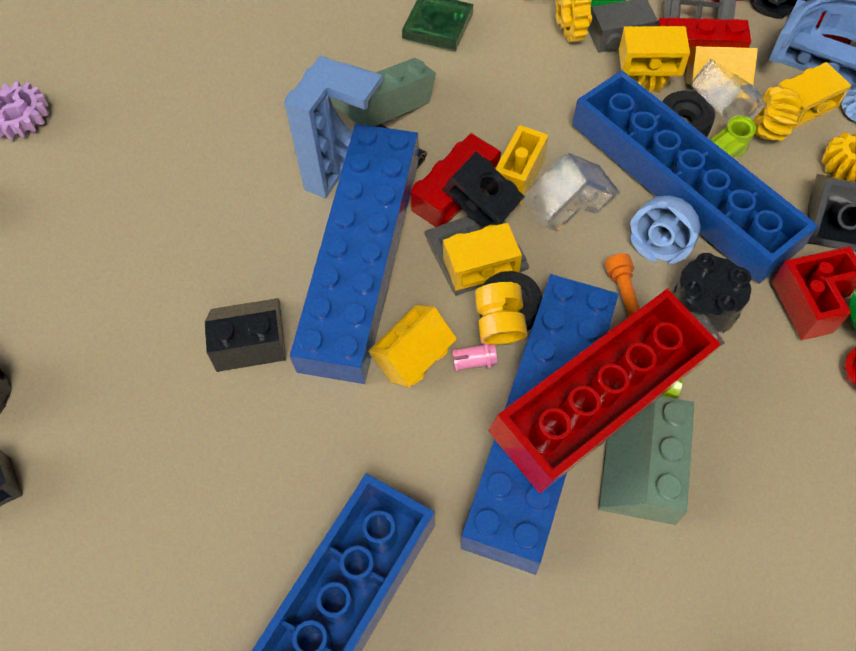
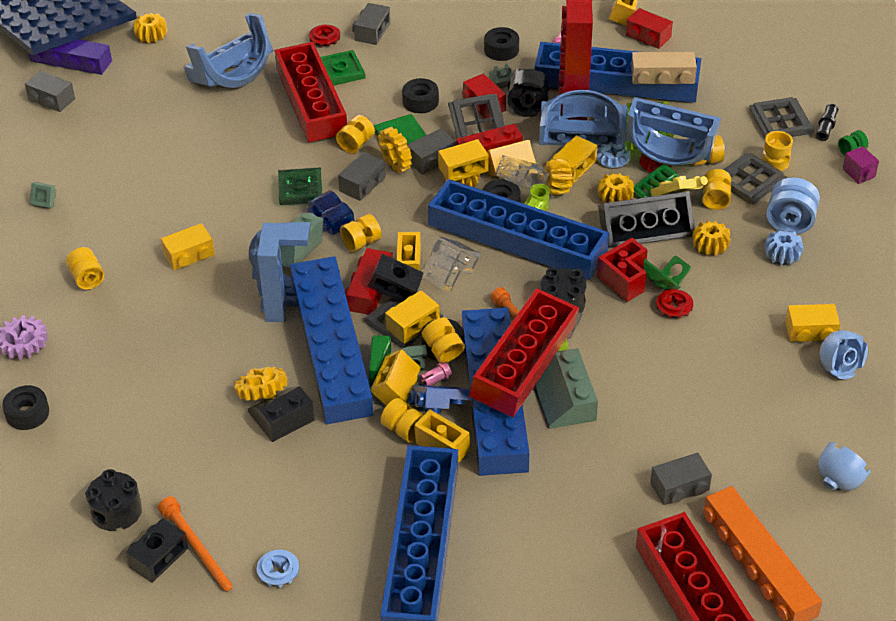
camera: 25 degrees left, 15 degrees down
(27, 427) = (171, 510): none -> orange piece
(92, 580) = (281, 559): none -> light blue gear
(132, 46) = (85, 268): none -> yellow wheel
(238, 282) = (261, 383): none -> yellow gear
(263, 57) = (187, 246): none -> yellow brick
(395, 420) = (401, 419): none -> yellow wheel
(416, 289) = (379, 349): none -> green slope
(429, 471) = (439, 432): none -> yellow brick
(448, 398) = (437, 397): none -> blue plate
(455, 68) = (332, 210): none -> clear blue brick
(459, 313) = (417, 353): none -> sand green tile
(467, 110) = (358, 233): none -> yellow wheel
(518, 31) = (362, 176): none -> dark grey brick
(665, 229) = (519, 265): light blue cylinder -> none

